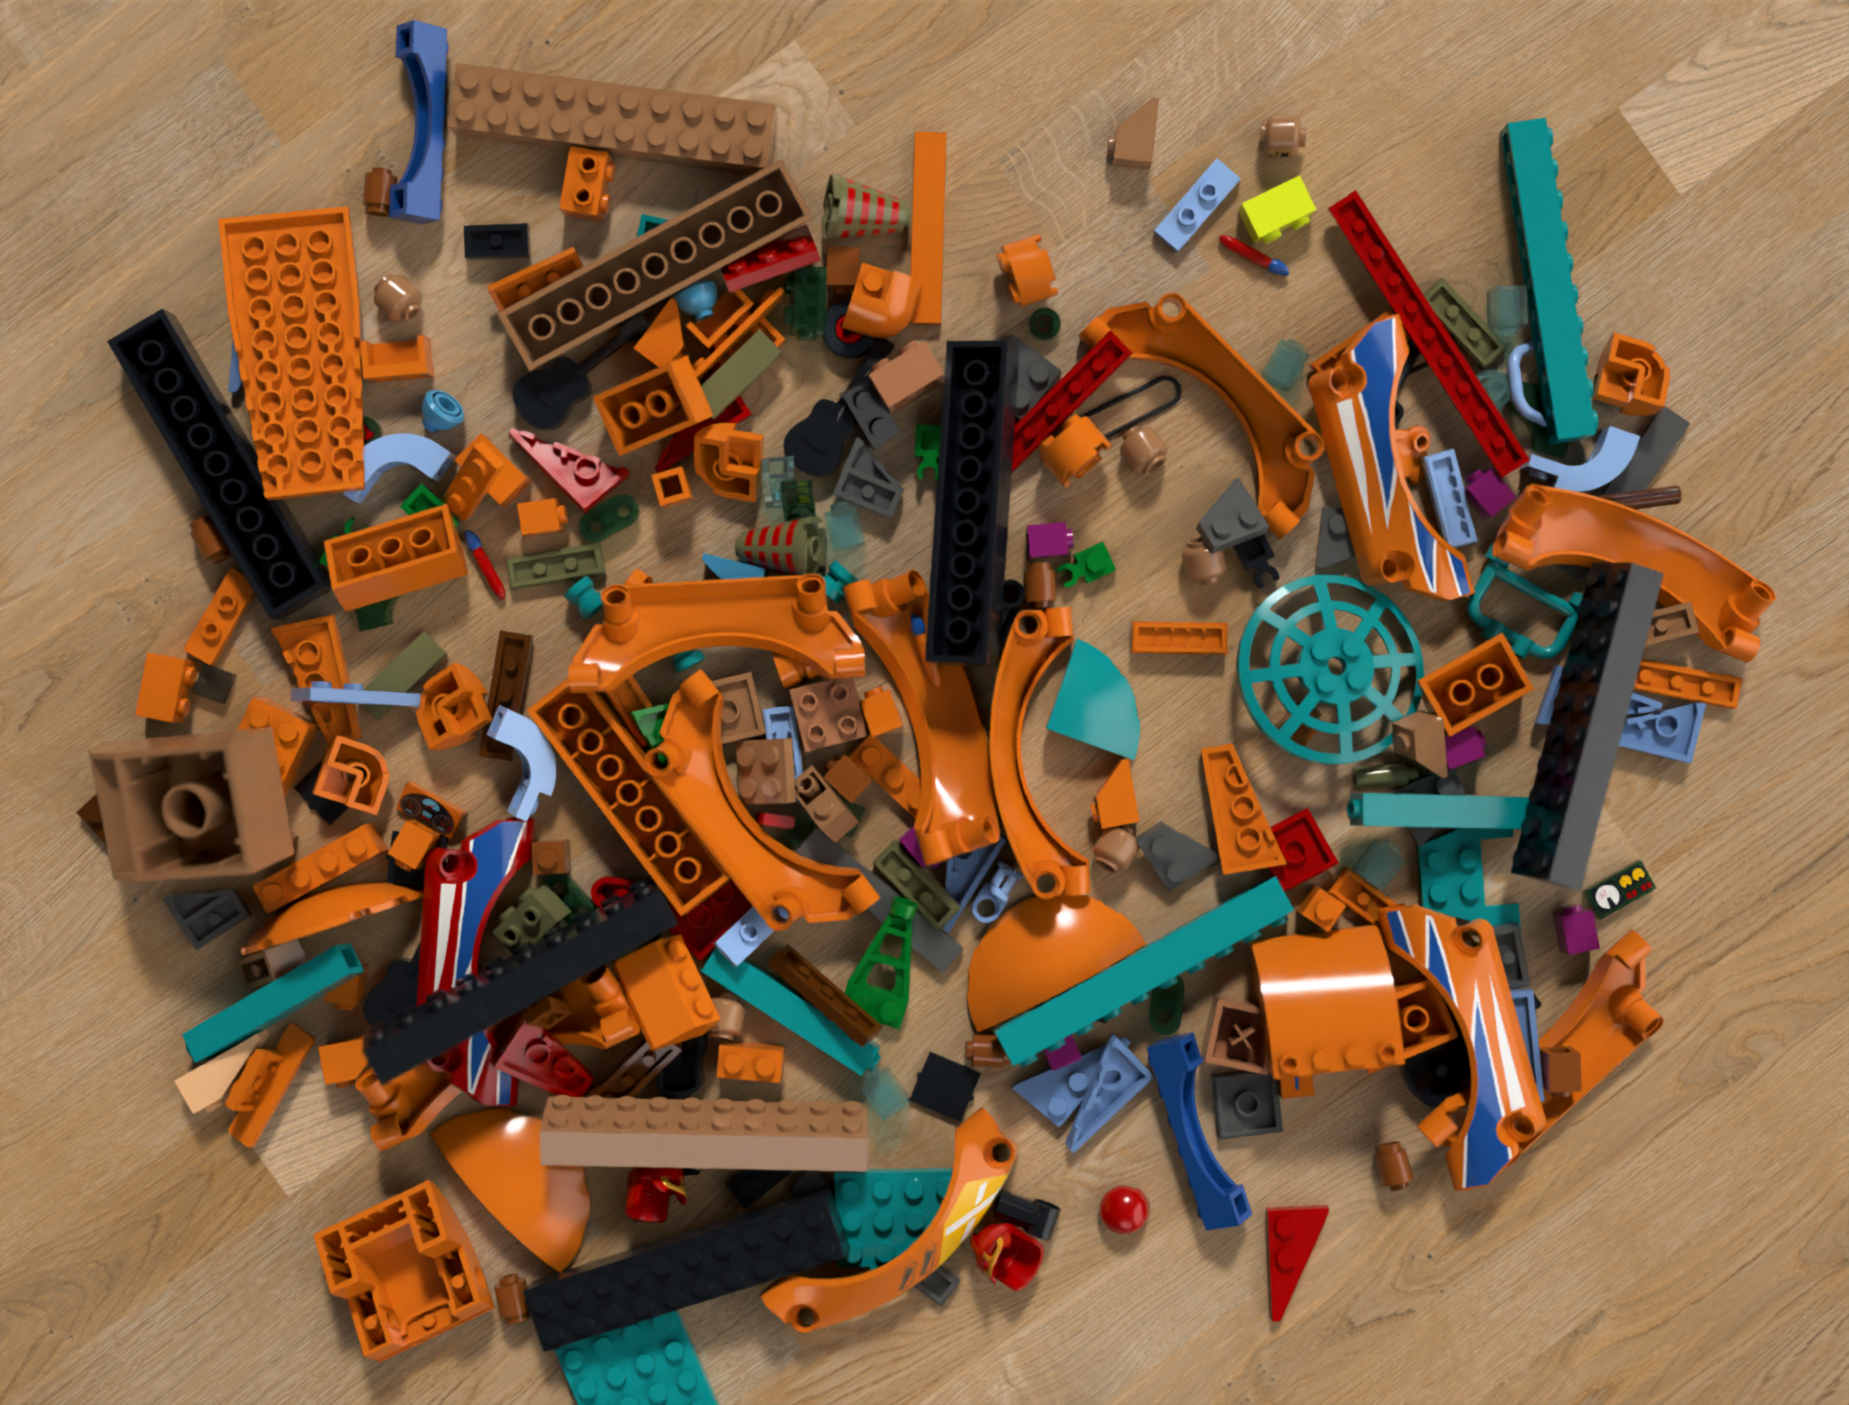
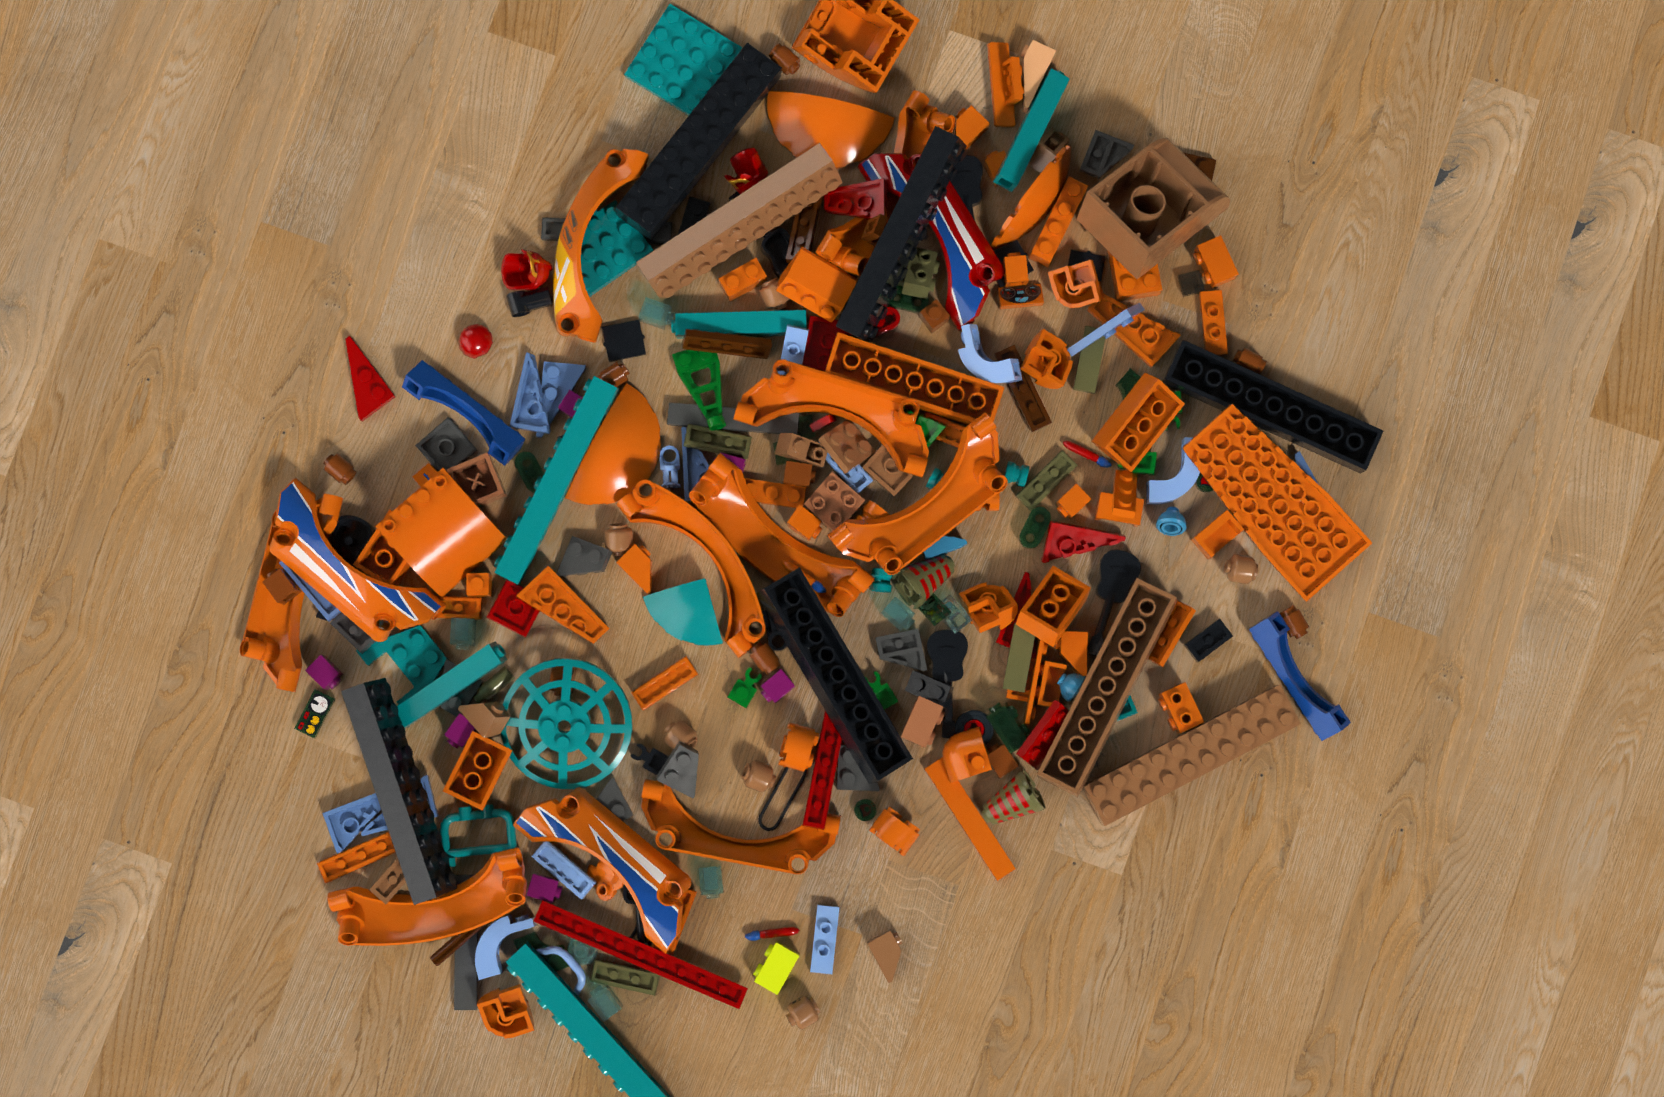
camera: 145 degrees right, 5 degrees down
(673, 487) = (1010, 569): orange brick -> none

